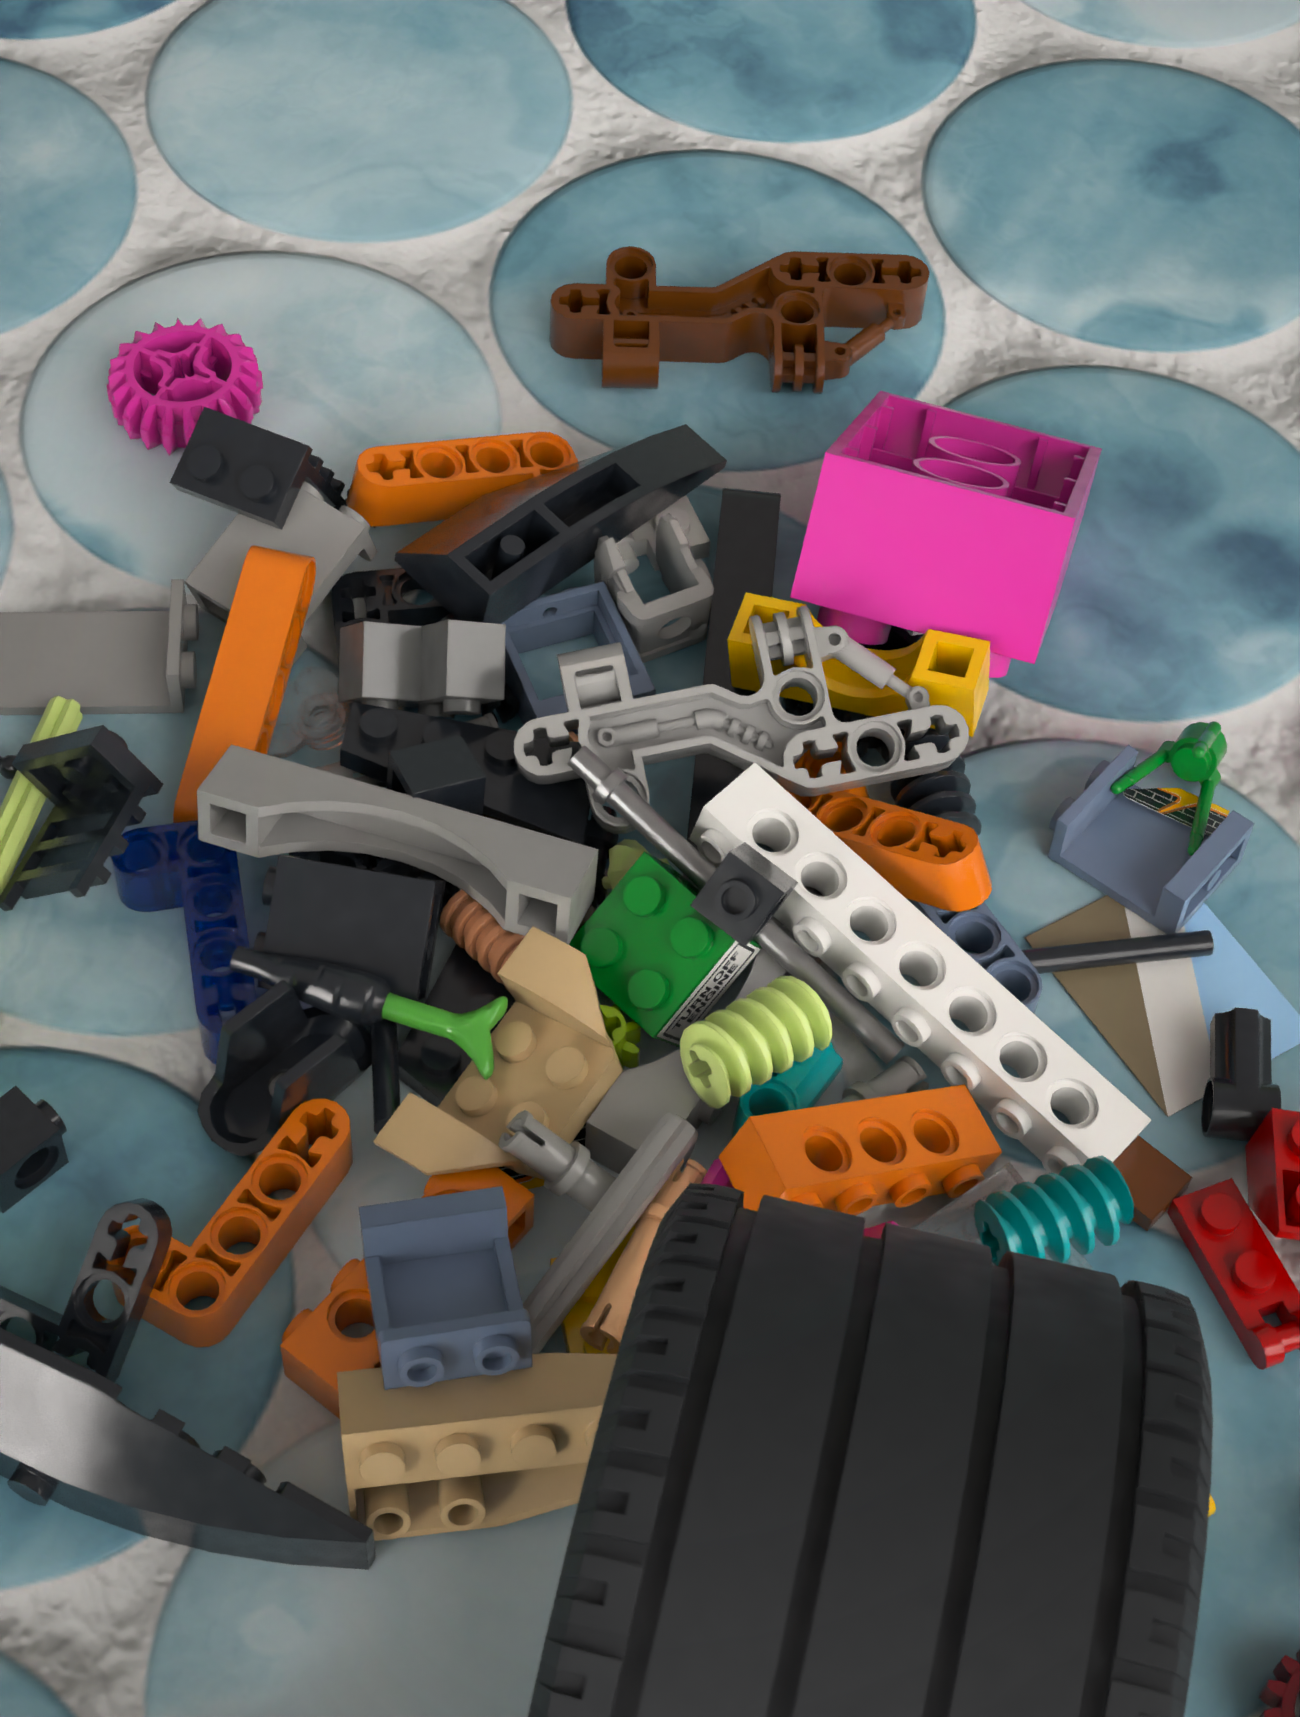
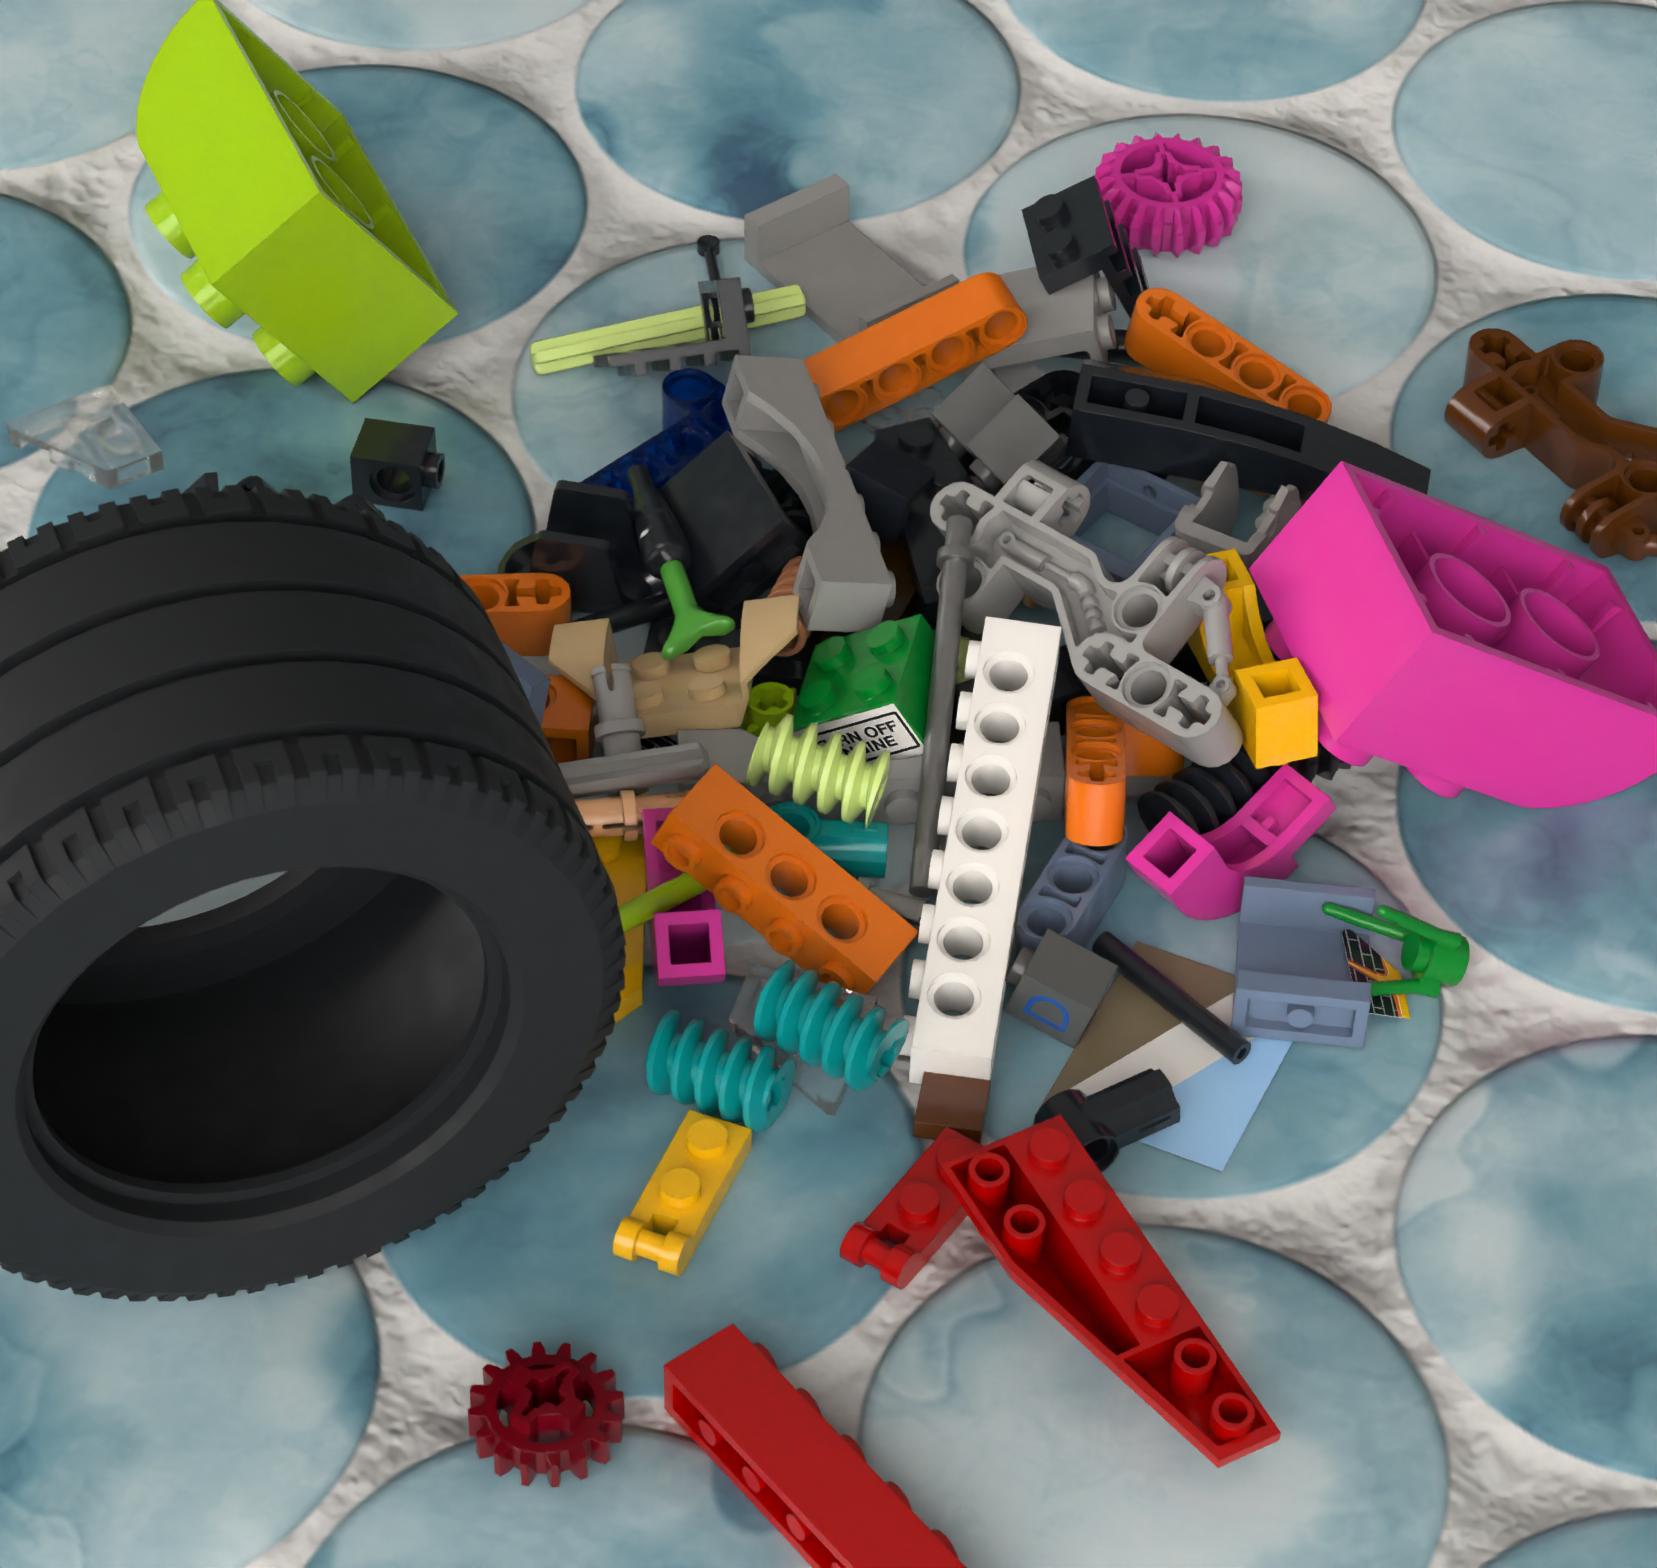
camera: 60 degrees right, 10 degrees down
(744, 893) = (925, 676): black brick -> none
(1016, 837) = (1207, 870): none -> dark pink arch
(1088, 1014) = (1058, 987): none -> dark grey brick

